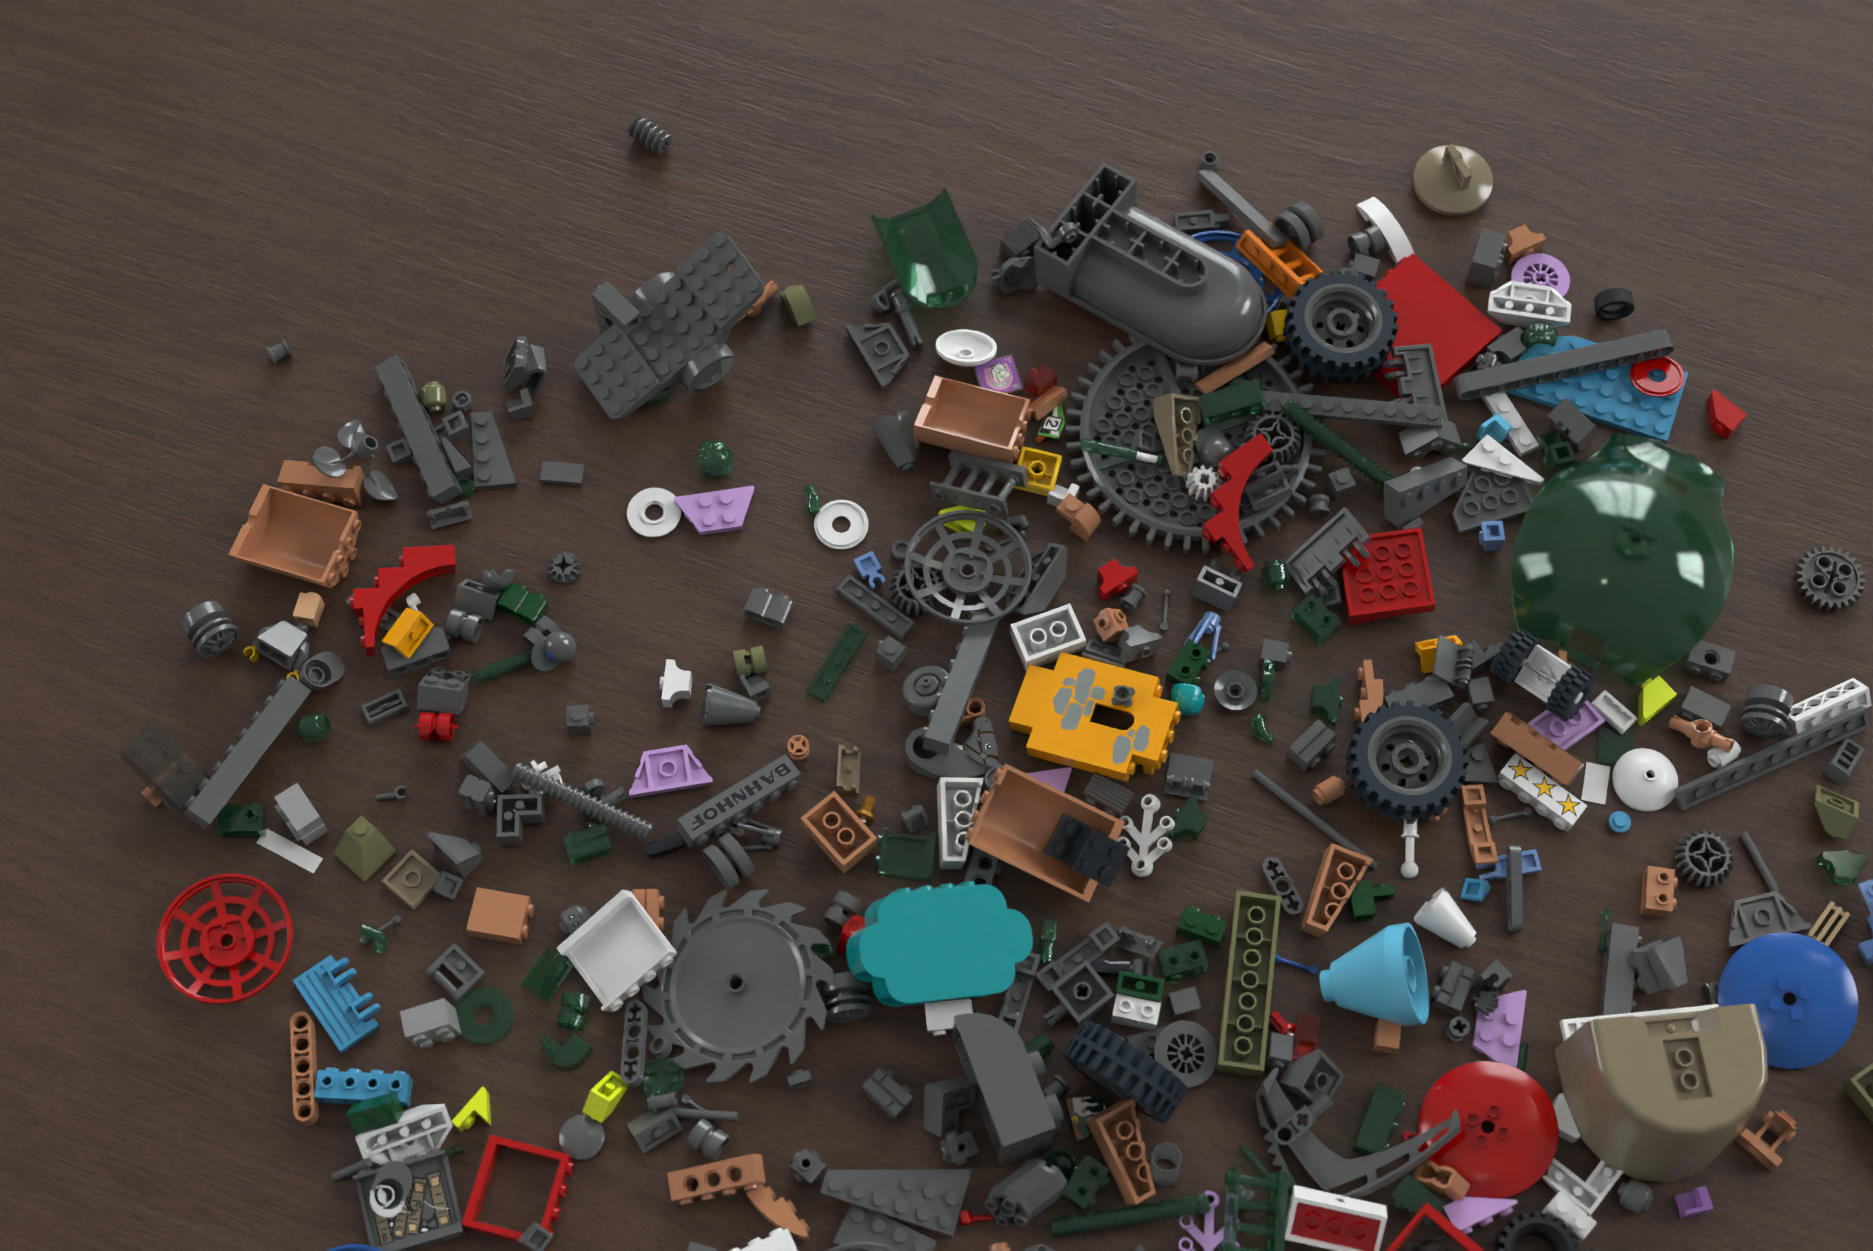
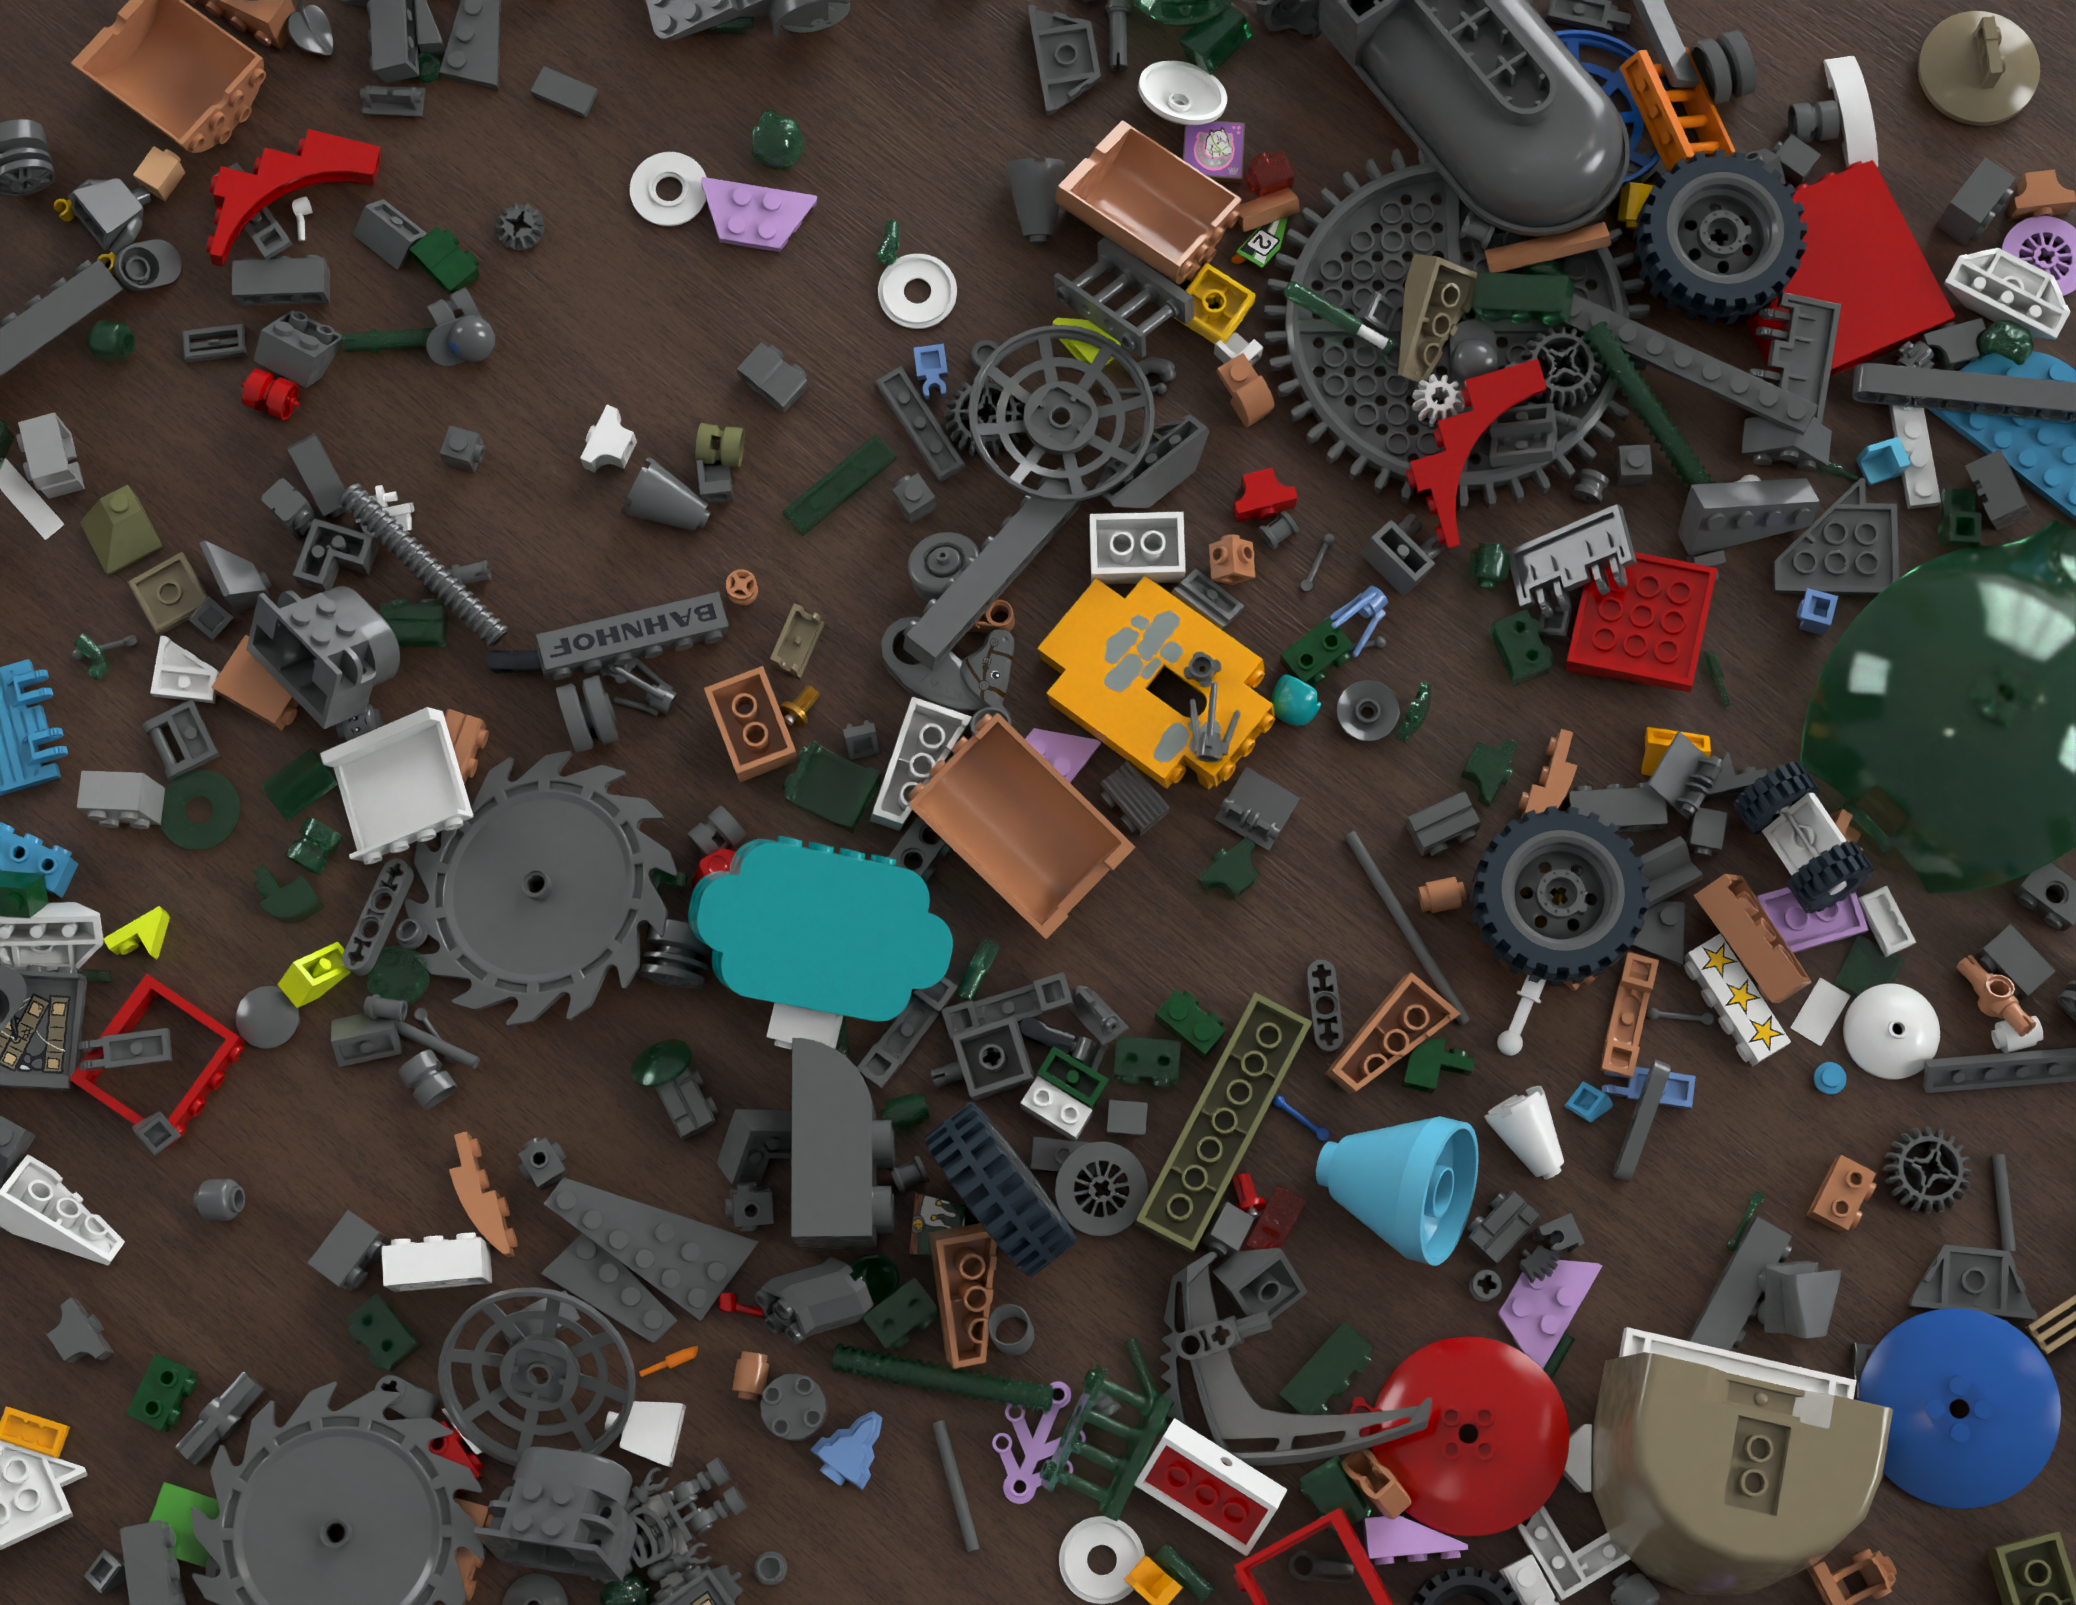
camera: 20 degrees right, 10 degrees up
(393, 795) = (184, 469): dark grey hand -> none
(408, 632) = (274, 251): light orange panel -> none
(441, 929) = (182, 674): none -> white wing
(468, 626) = (352, 263): dark grey wheel -> none
(497, 1189) = (129, 1050): none -> dark grey hinge
(498, 581) = (423, 217): dark grey hair -> none
(537, 877) = (325, 650): none -> dark grey brick
(593, 787) = (448, 550): dark grey tile -> none
(668, 771) = (556, 561): lavender wing -> none
(681, 1181) = (463, 1139): nougat brick -> none
(799, 1079) = (576, 1041): dark grey plate -> none
(862, 1073) = (661, 1063): none -> clear green dish
(974, 309) = (1216, 38): none -> clear green brick
(1086, 849) = (1069, 866): black bracket -> none
(1138, 643) = (1257, 599): dark grey brick -> none
(1146, 838) = (1163, 875): white plant -> none
(1148, 741) = (1210, 746): none -> dark grey plant
(1259, 728) = (1380, 776): clear green arm -> none
(1275, 651) = (1444, 677): dark grey brick -> none
(1387, 1037) = (1383, 1263): nougat panel -> none
(1444, 596) = (1716, 674): none -> clear green piece
(1494, 458) = (1868, 501): white wing -> none
(1653, 698) = (1950, 922): neon yellow slope -> none

